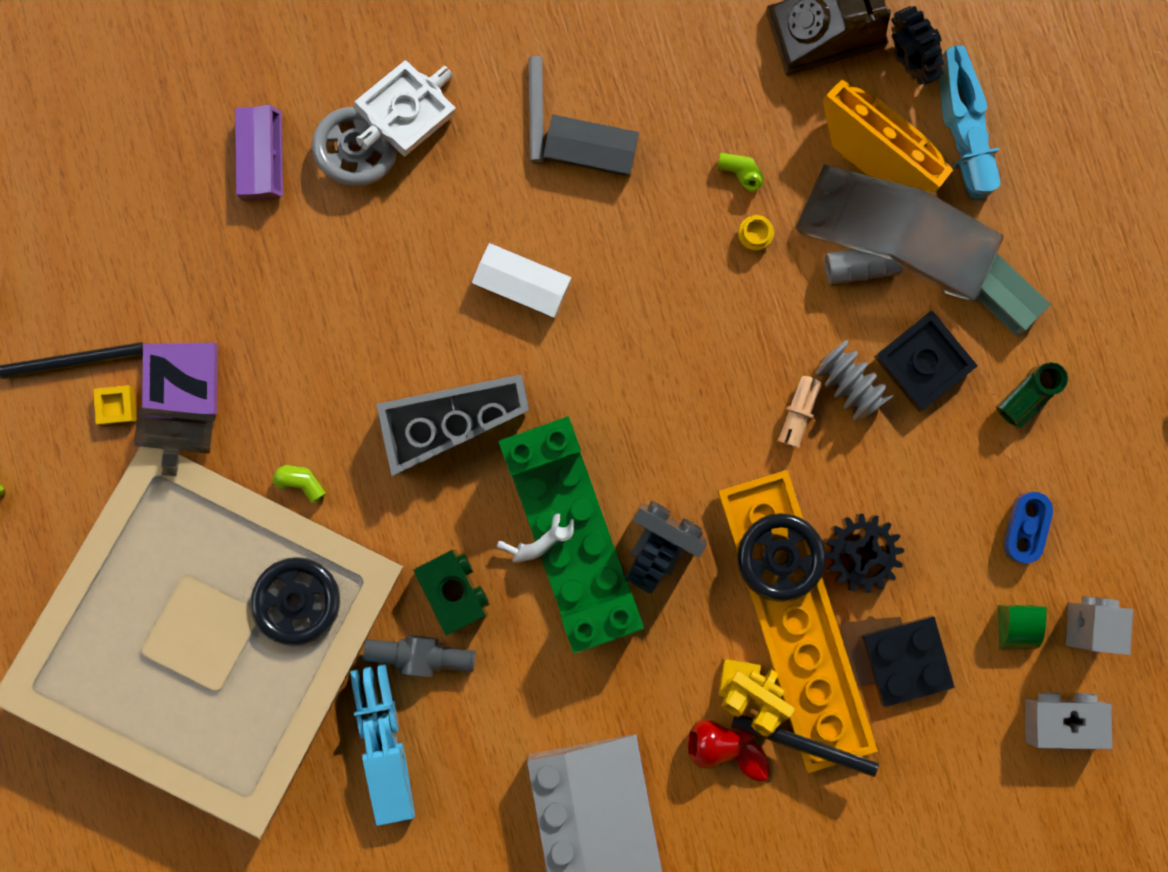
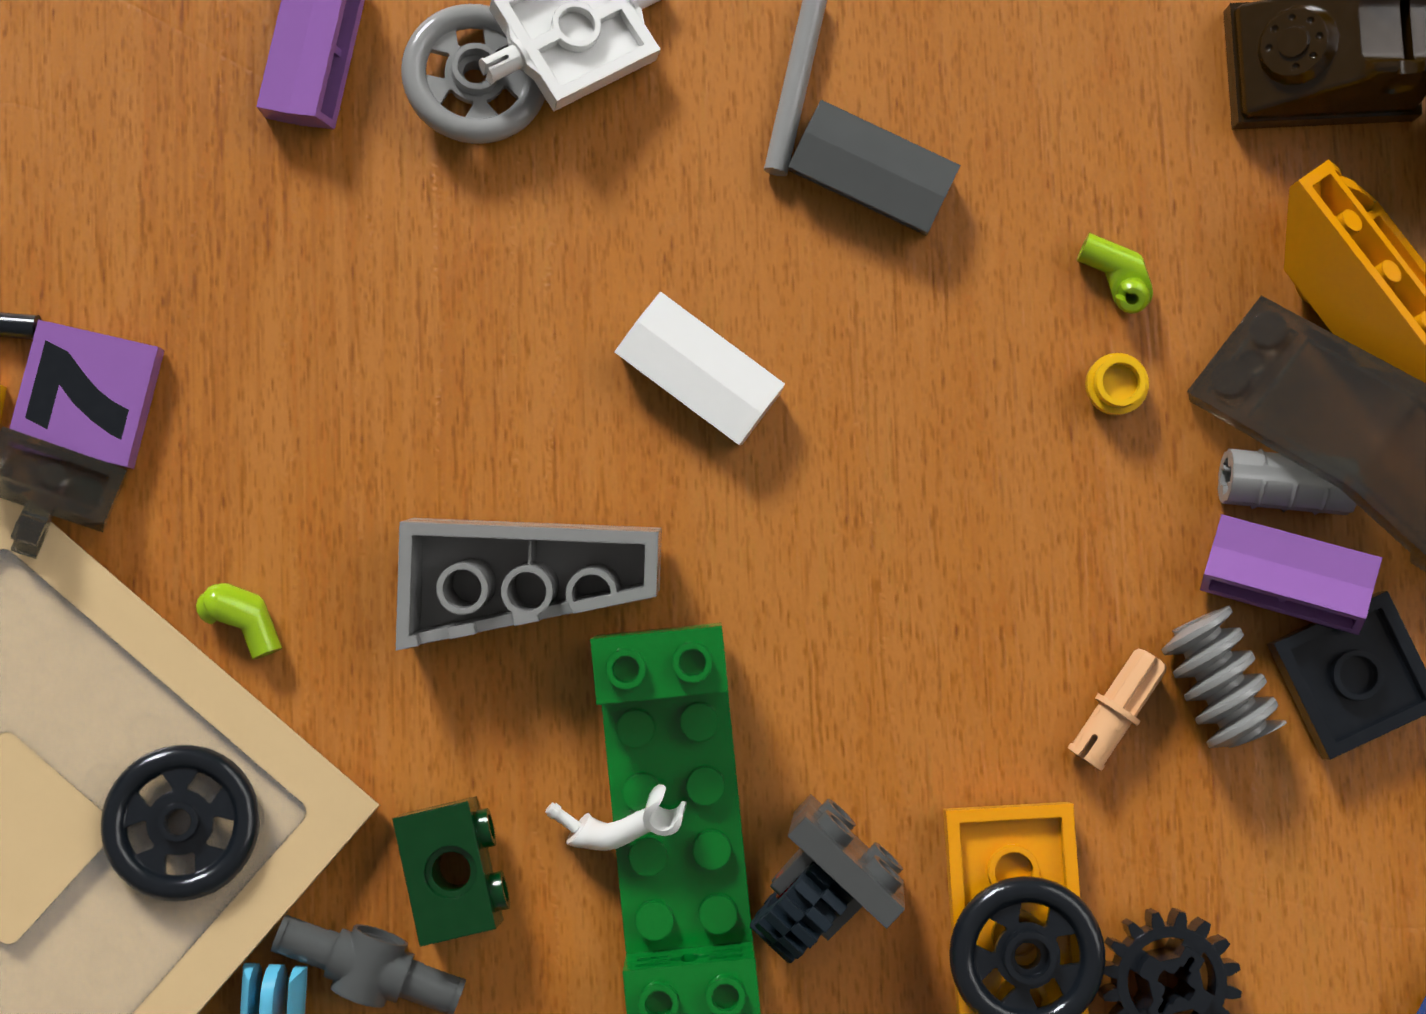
camera: 15 degrees right, 0 degrees up
(875, 313) = (1291, 574): none -> medium lavender piece

